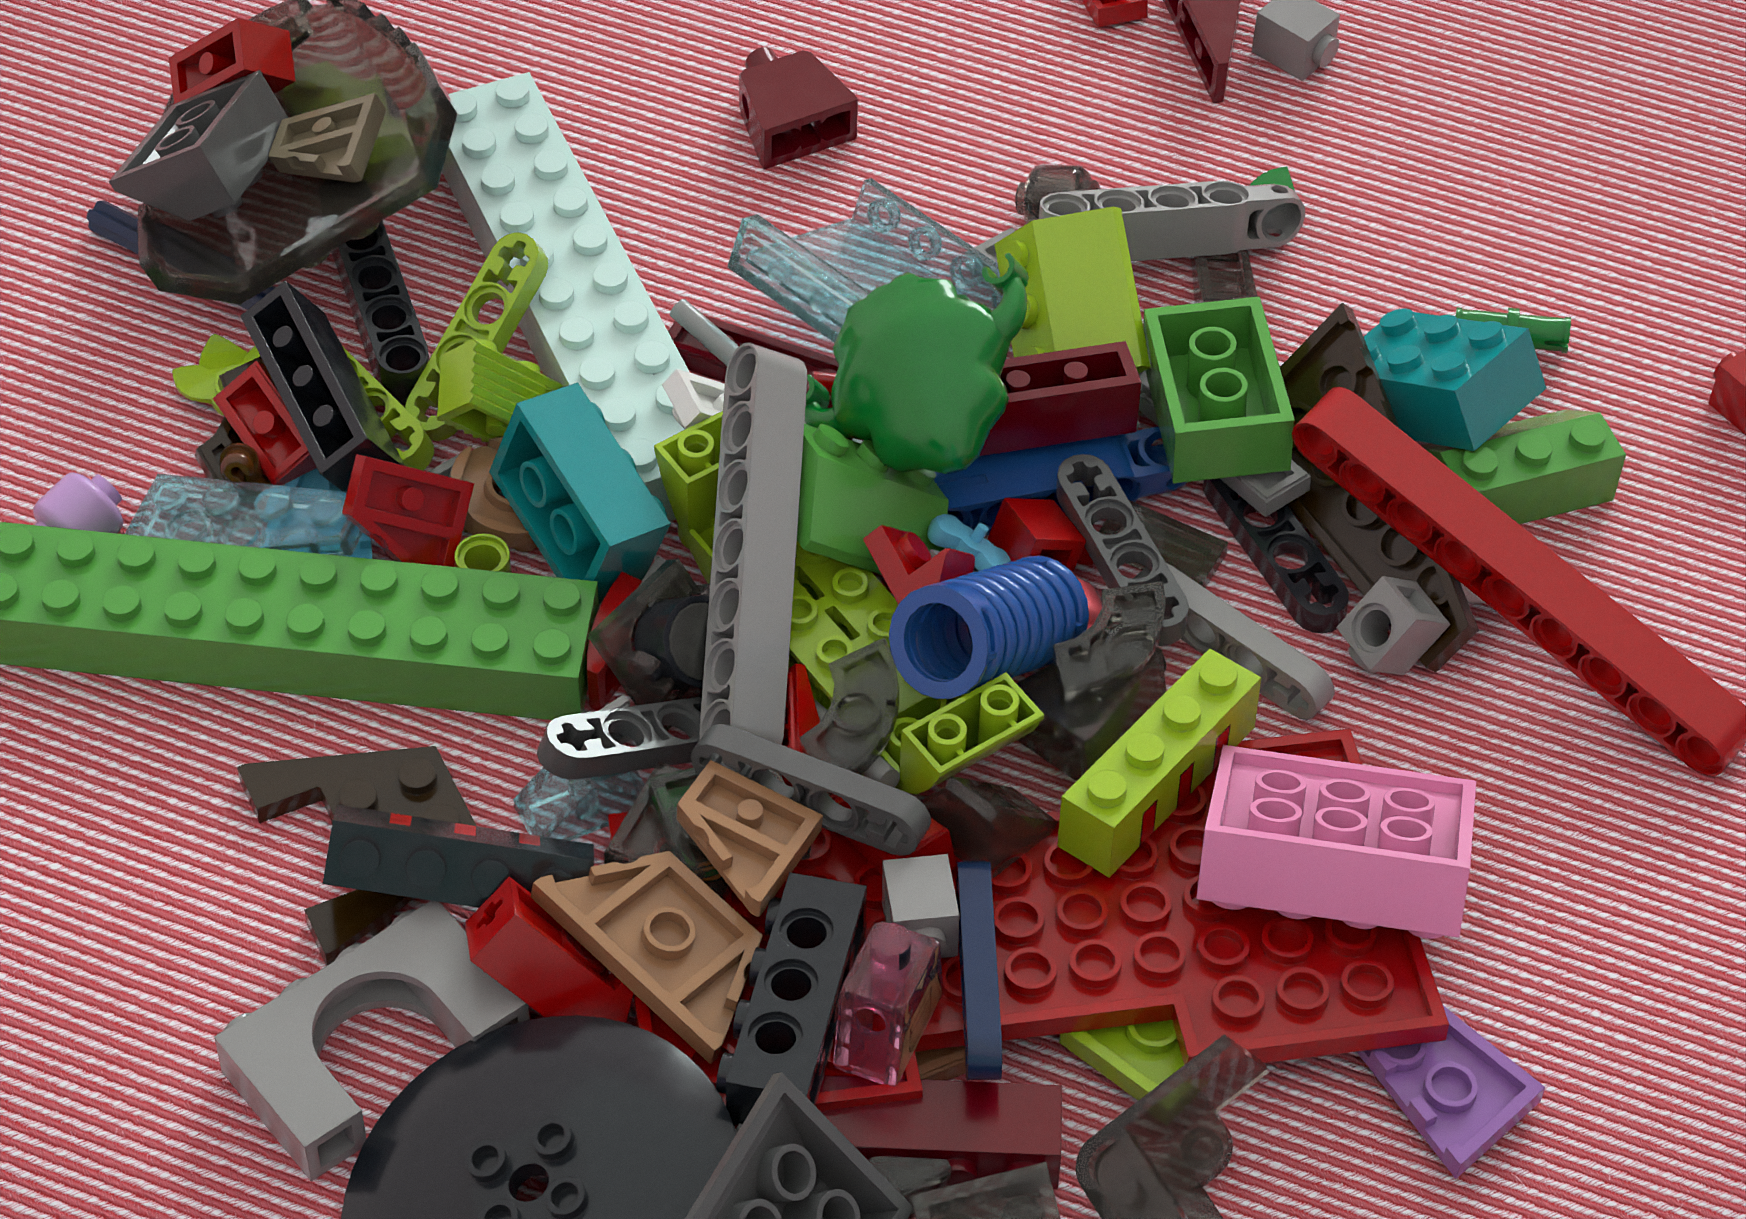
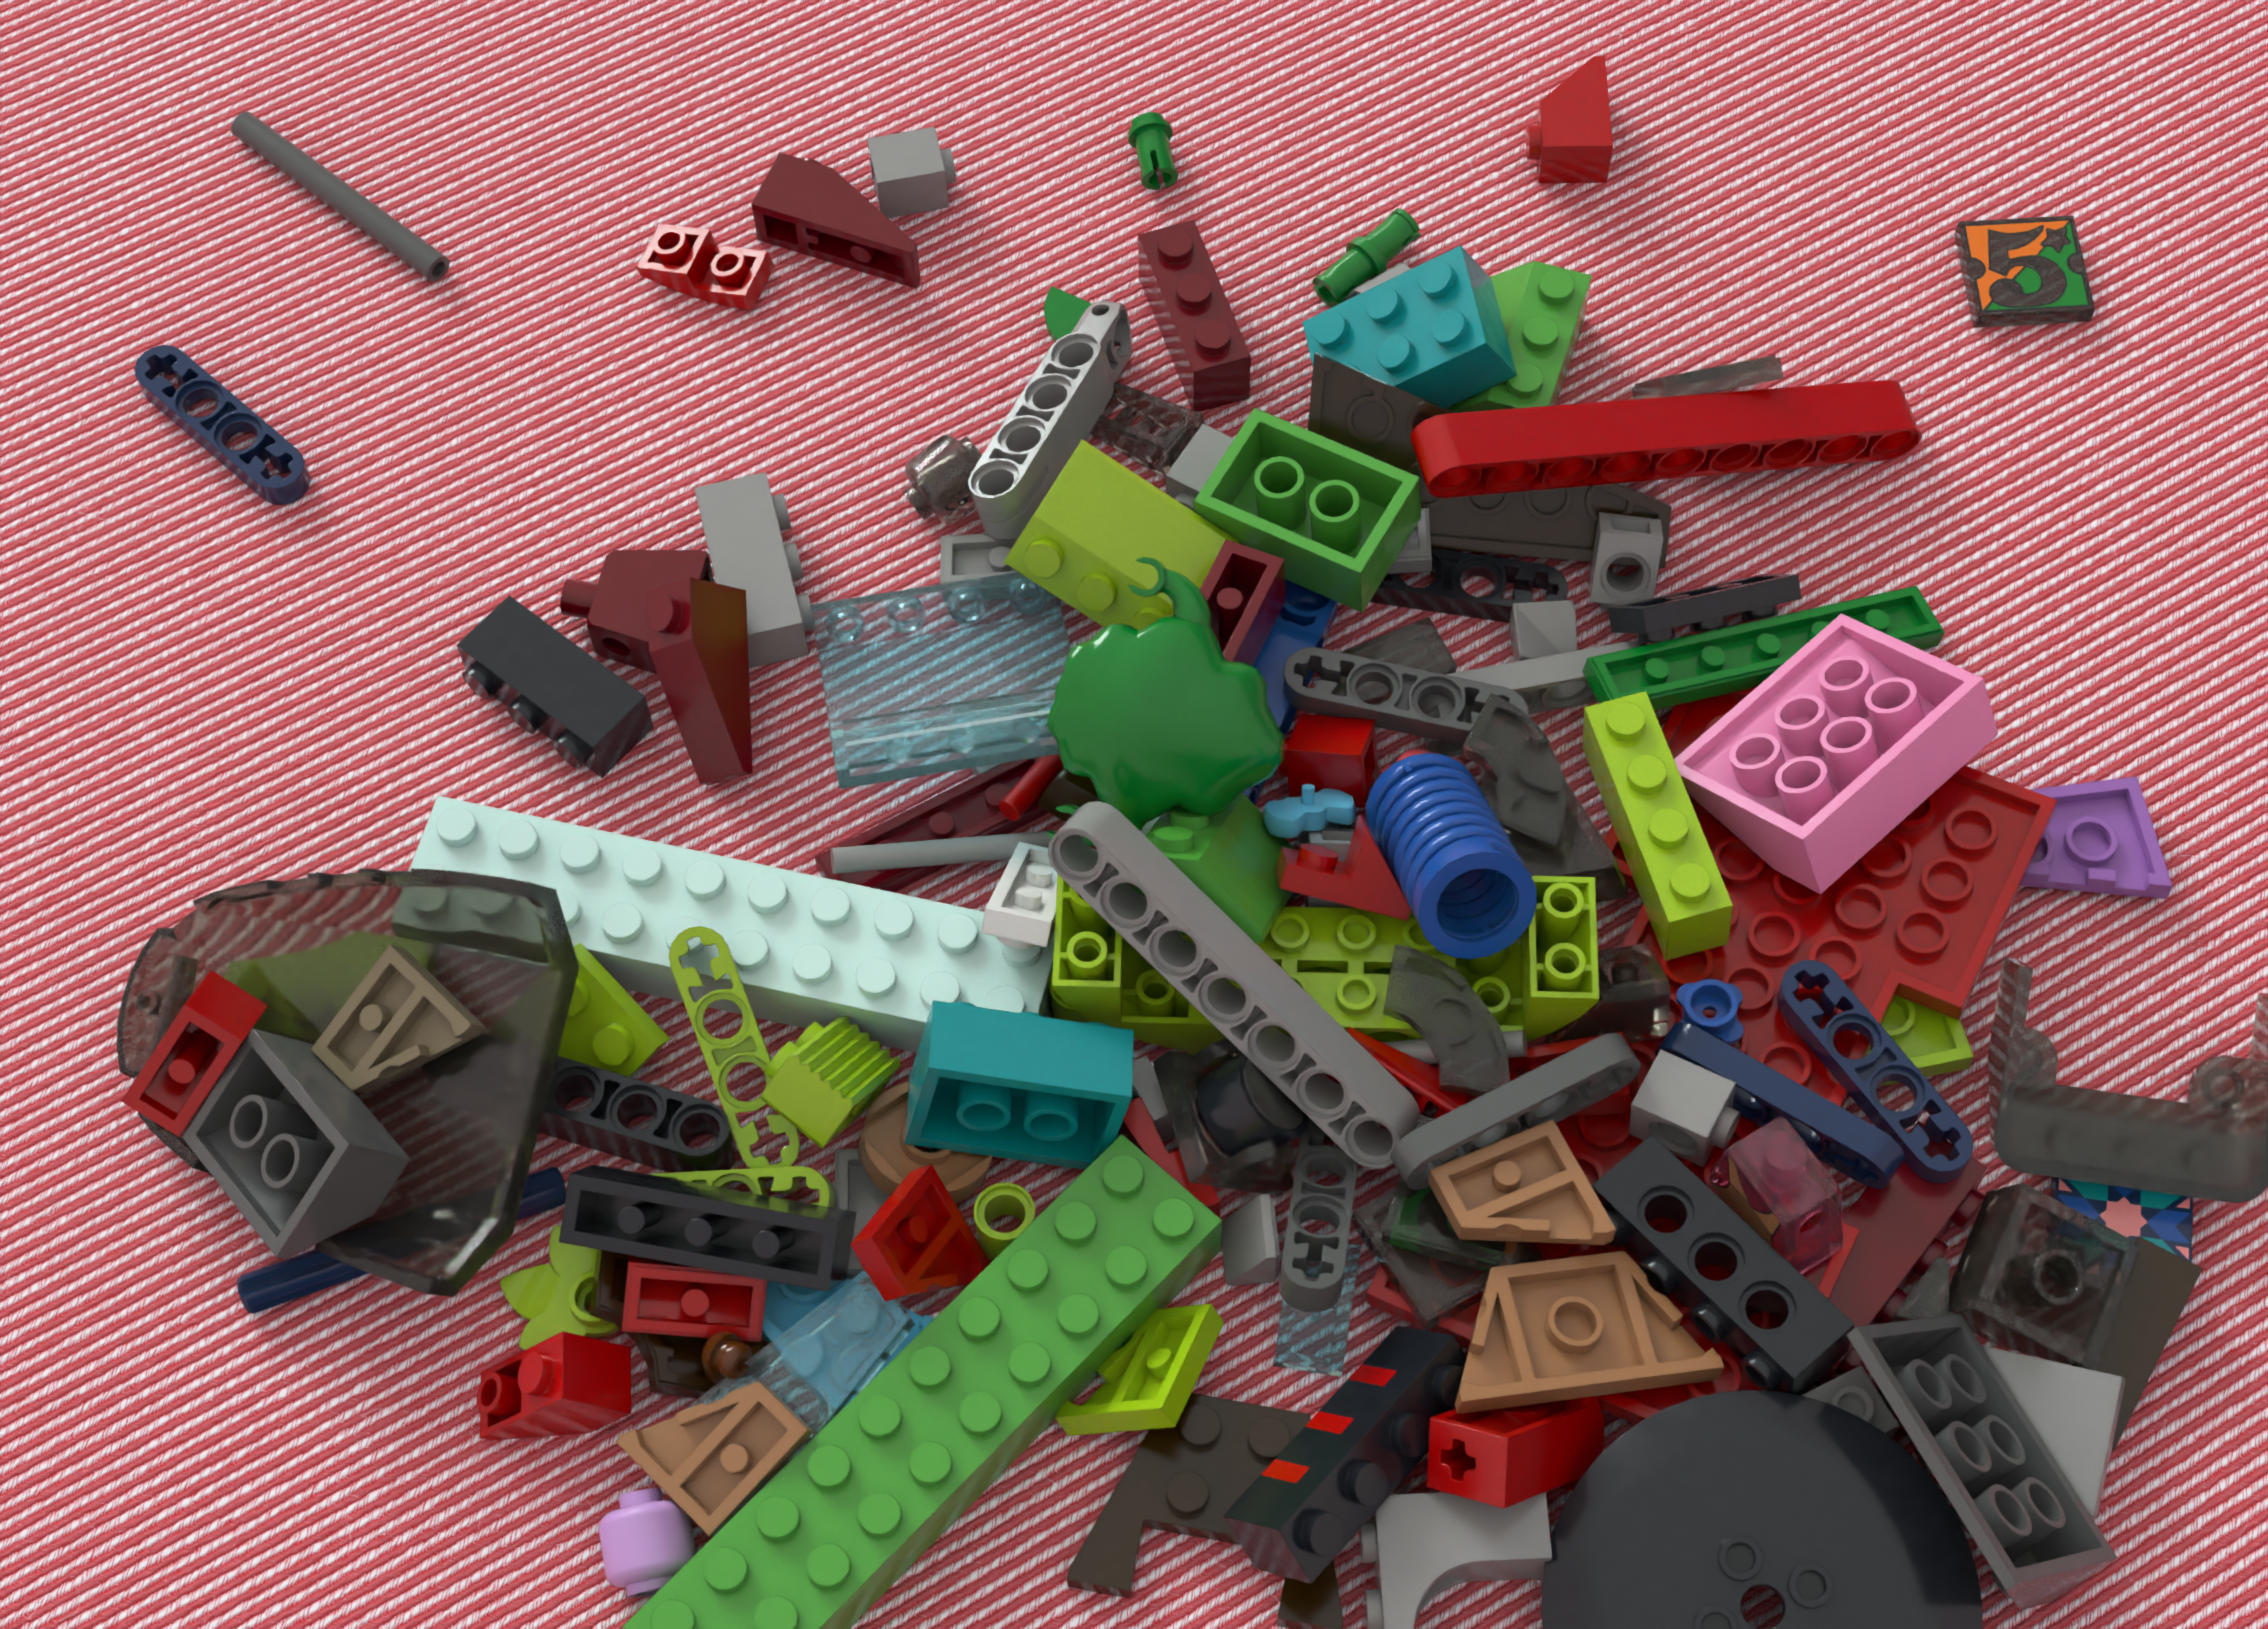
camera: 50 degrees left, 10 degrees up
(153, 402) = (556, 1389): none -> red slope
(166, 499) = (719, 1452): none -> medium nougat wing
(435, 720) = (1149, 1375): none -> lime wing
(439, 254) = (606, 1023): none -> lime wing
(680, 95) = (554, 687): none -> black brick
(762, 141) = (704, 669): none -> dark red slope
(876, 139) = (749, 554): none -> light grey brick
(1027, 875) = (1714, 996): none -> blue plate
(1069, 1020) = (1882, 1064): none -> dark blue beam
(1286, 615) = (1542, 629): none -> light grey slope
(1343, 253) = (1194, 316): none -> dark red brick
(1367, 736) = (1749, 652): none -> green tile
(1402, 700) = (1705, 606): none -> black plate
(1480, 148) = (1151, 138): none -> green pin
(1625, 589) = (1712, 379): none -> clear smoke tile

